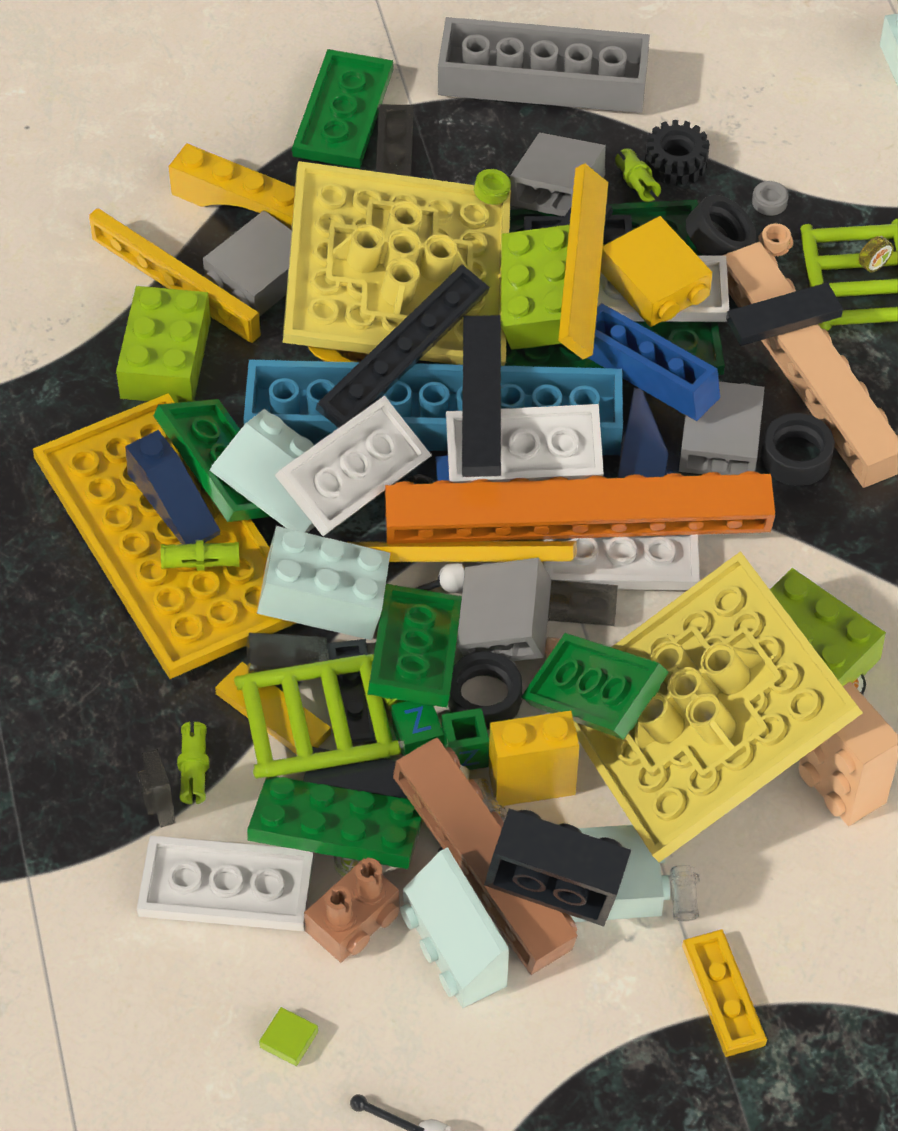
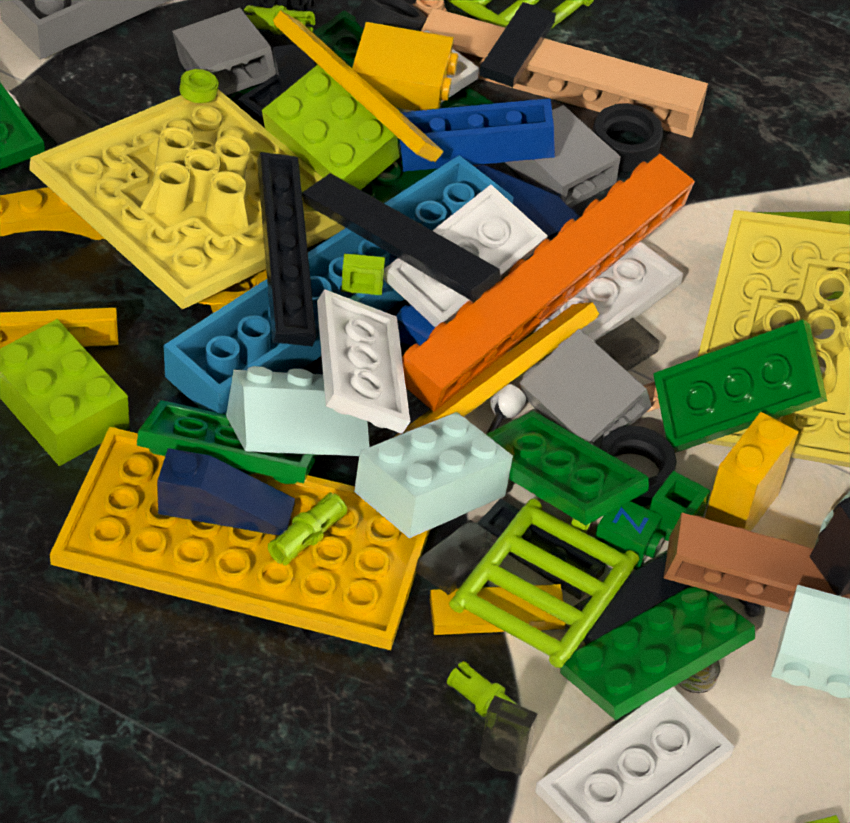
camera: 50 degrees left, 5 degrees down
(253, 263) = (58, 269): light grey brick -> none
(353, 910) = (754, 702): nougat brick -> none
(428, 405) = (363, 274): none -> lime tile

